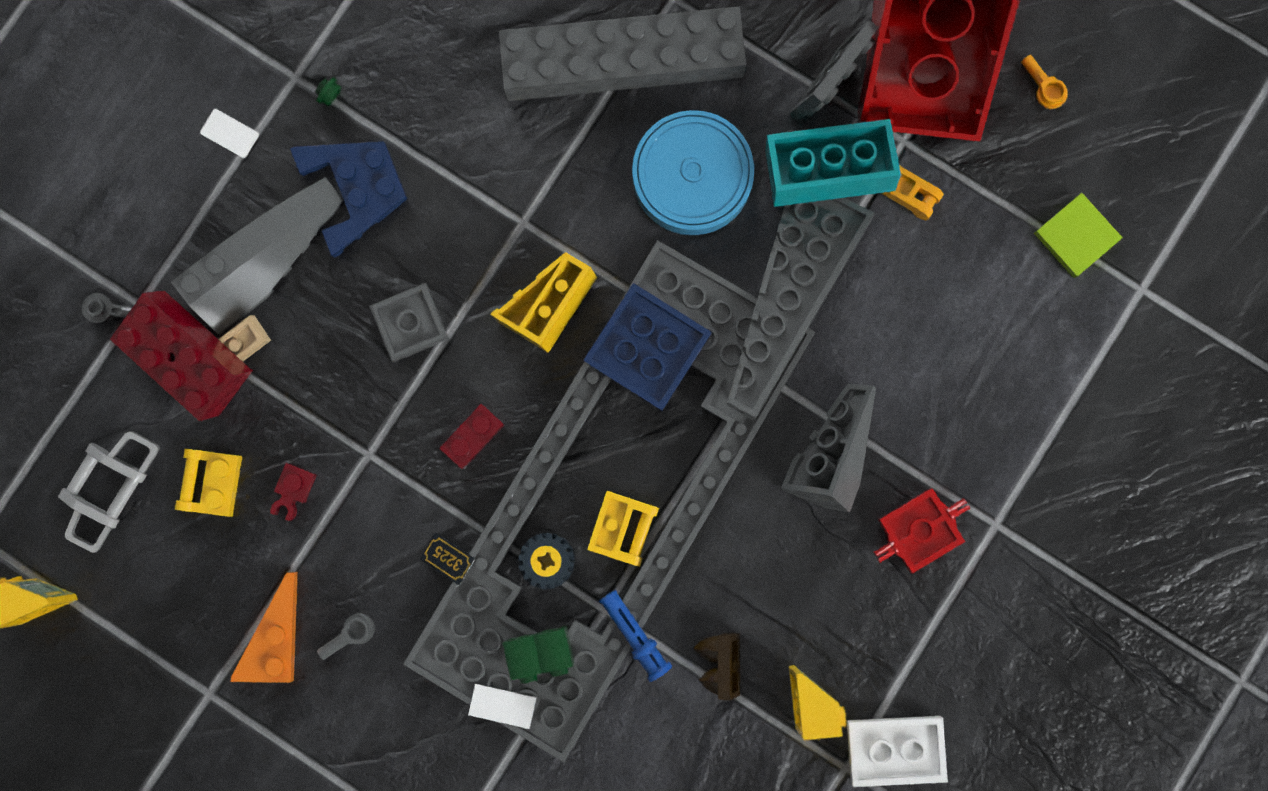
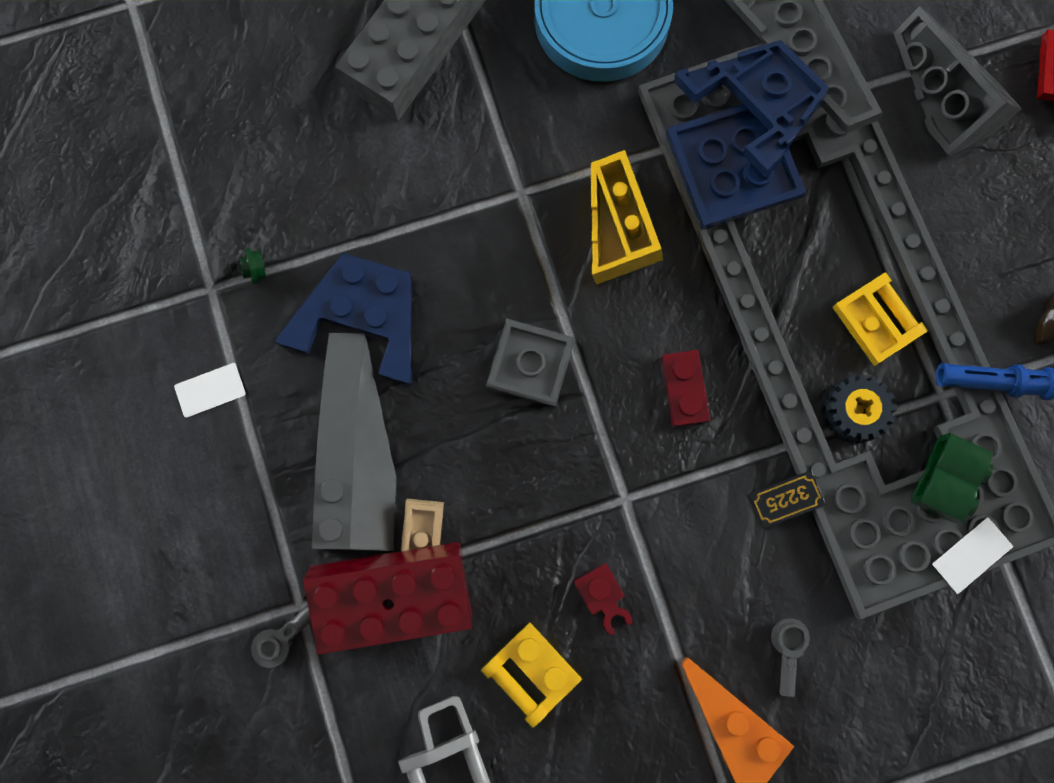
camera: 55 degrees left, 5 degrees down
(715, 331) = (772, 86): none -> dark blue wing

